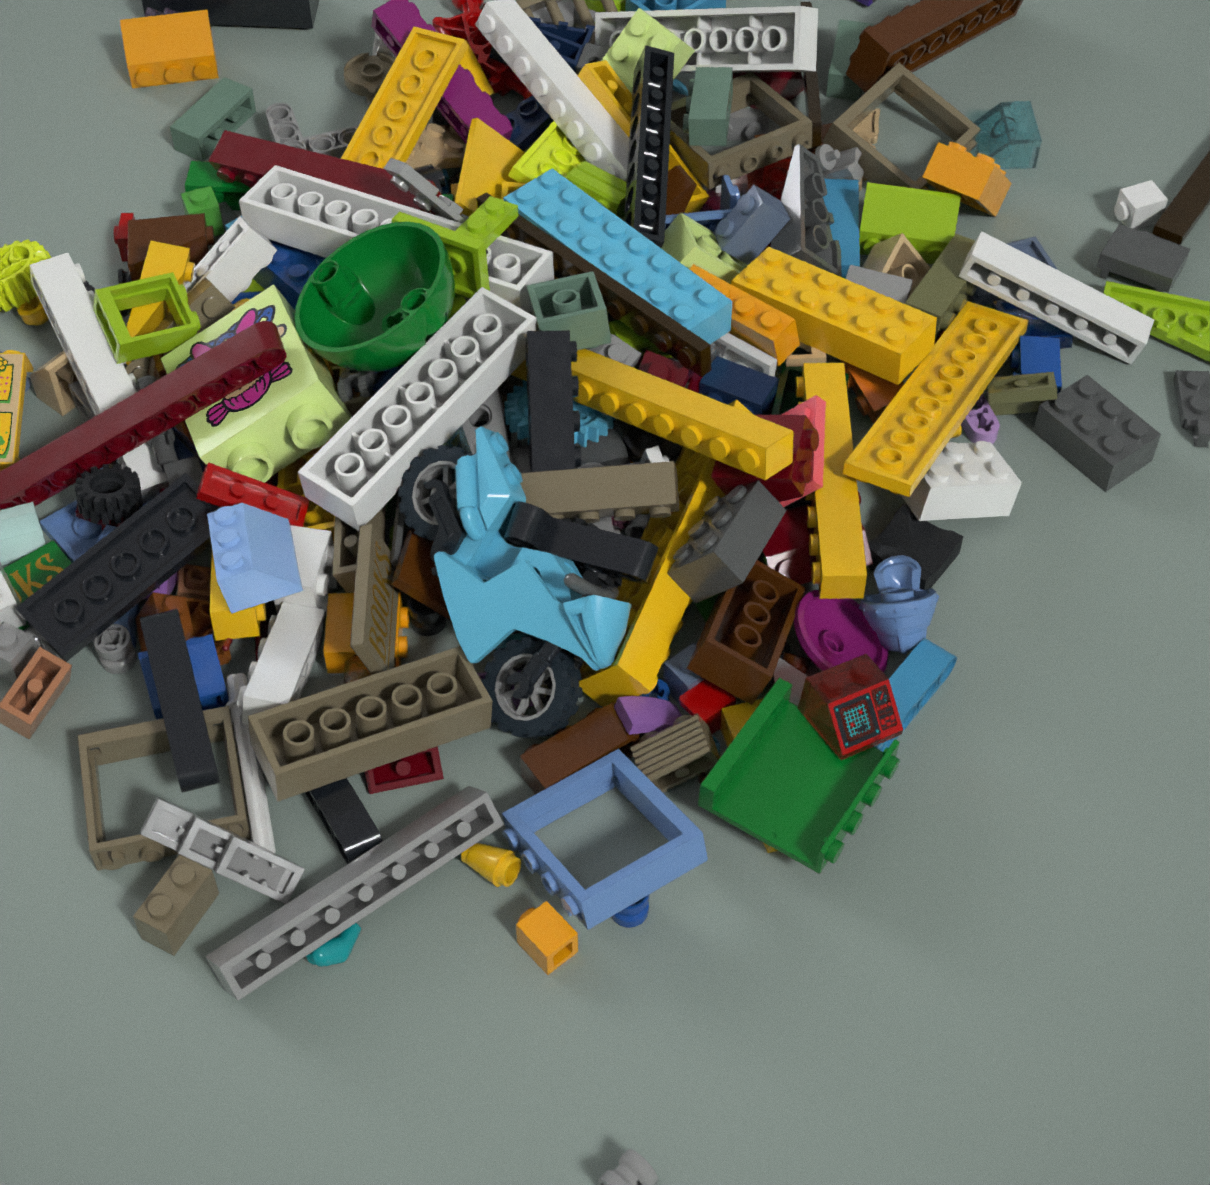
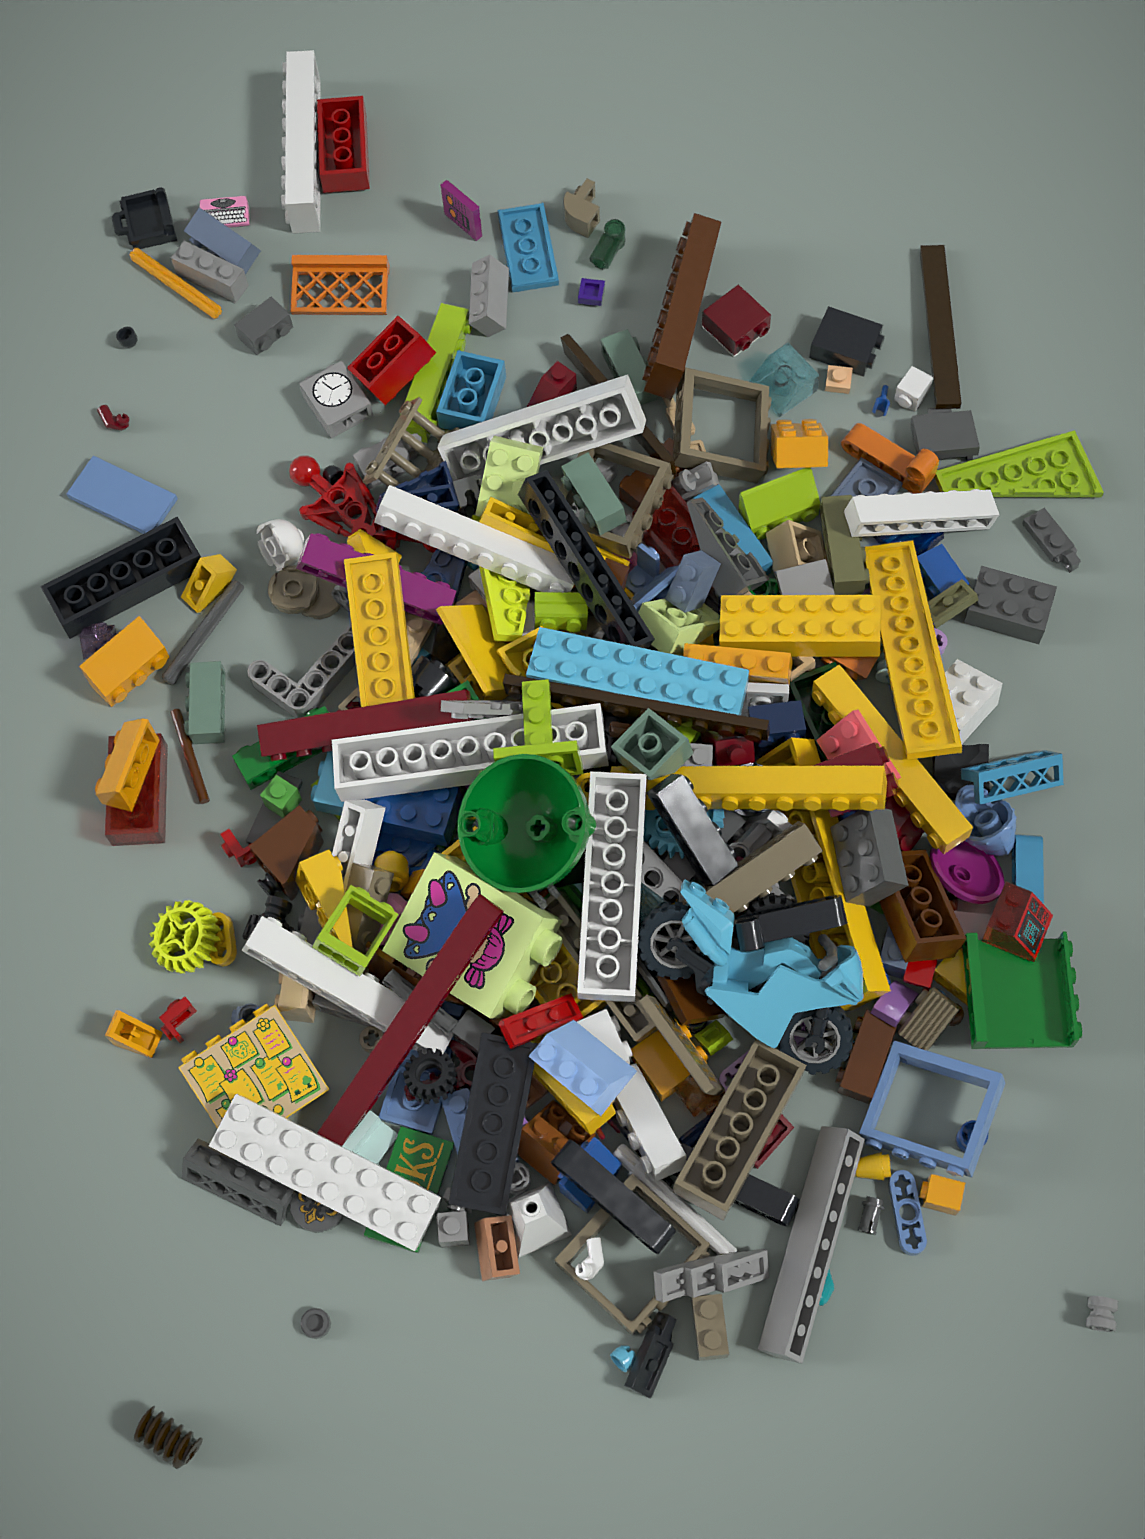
camera: 30 degrees left, 15 degrees up
(66, 879) = (623, 1358): none -> medium azure hinge
(84, 147) = (148, 818): none -> clear red brick
(86, 107) = (127, 764): none -> light orange slope
(92, 896) = (652, 1356): none -> black hinge
(98, 689) = (539, 1228): none -> white slope
(101, 762) = (592, 1262): none -> white arm
(156, 161) = (190, 757): none -> reddish brown bar
(268, 68) = (202, 632): none -> dark grey axle
(304, 33) = (208, 581): none -> yellow slope
(430, 642) = (713, 1037): none -> lime plate
(449, 909) = (870, 1215): none -> dark grey pin
(492, 951) = (911, 1189): none -> medium blue beam
(969, 566) = (1012, 767): none -> dark azure fence
(994, 70) = (736, 320): none -> dark red piece
(1065, 247) = (911, 470): none -> orange beam
(1066, 166) = (838, 379): none -> light nougat plate
(1095, 203) = (882, 402): none -> blue hand
(1098, 136) = (847, 341): none -> black brick

